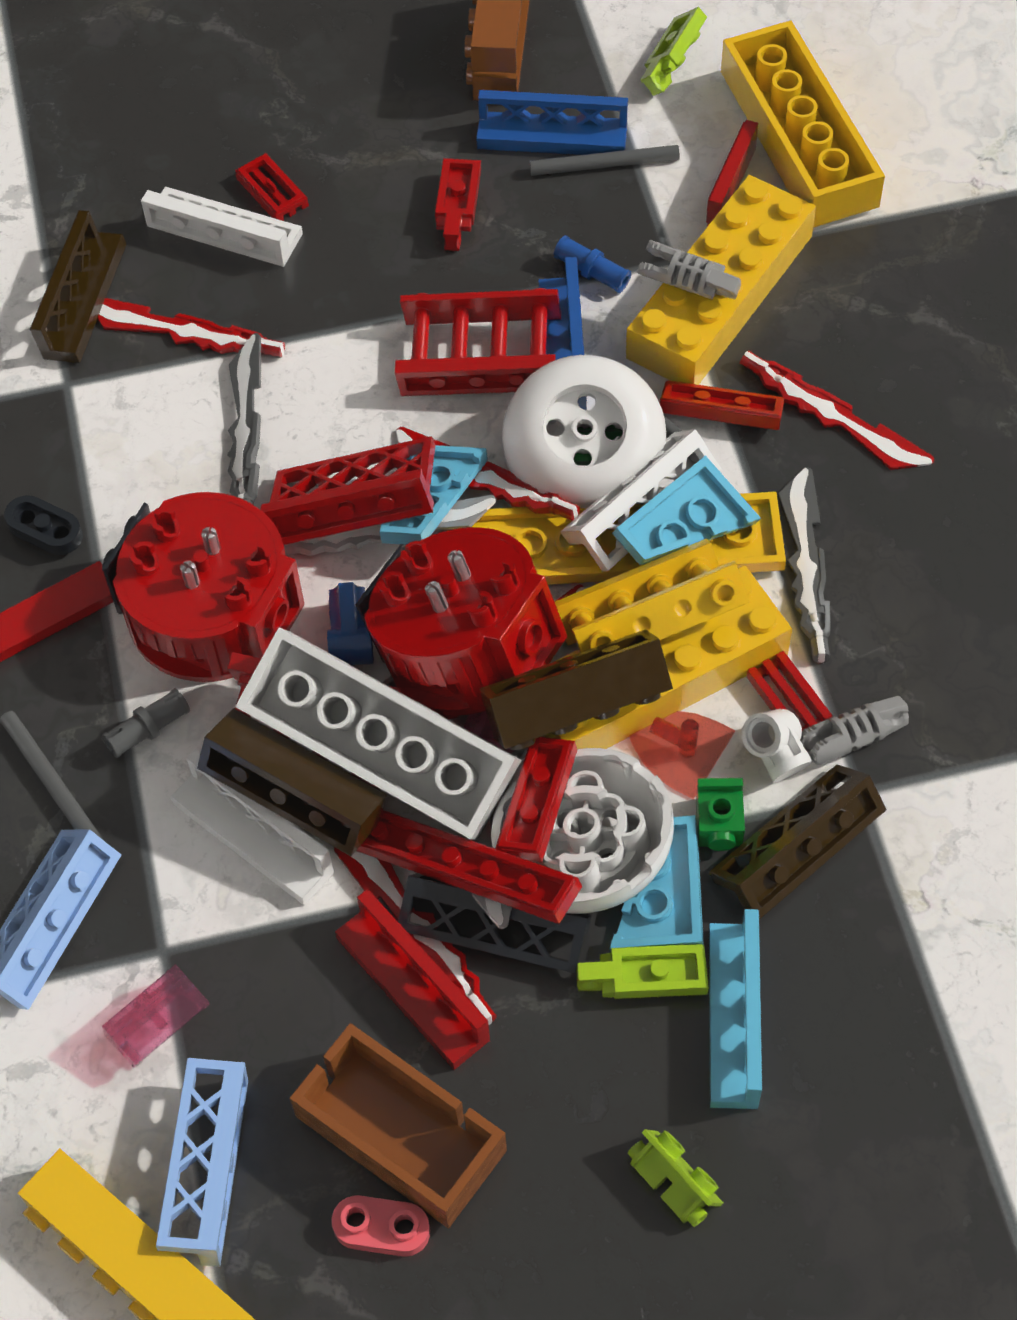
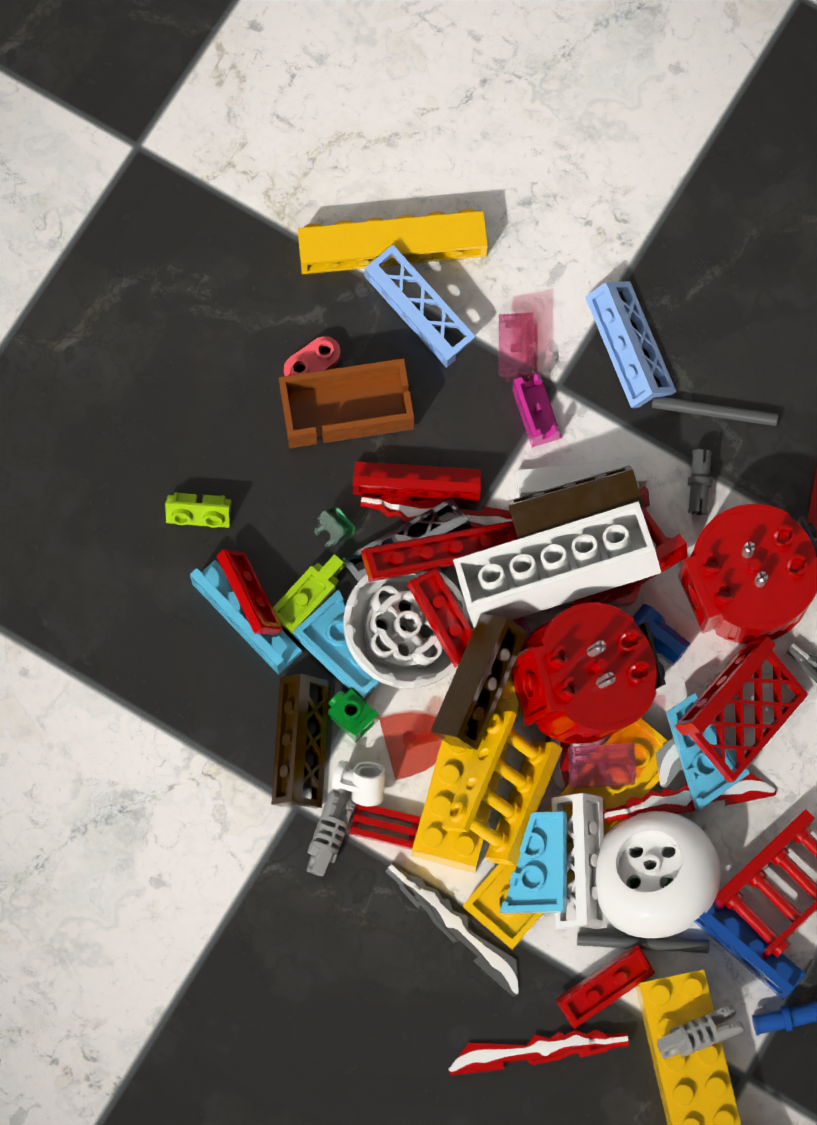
camera: 130 degrees right, 15 degrees up
(216, 937) = (536, 411): none -> dark pink hinge
(544, 1011) = (336, 524): none -> clear green tile
(548, 561) = (601, 765): none -> clear pink hinge
(710, 1021) = (249, 592): none -> red tile

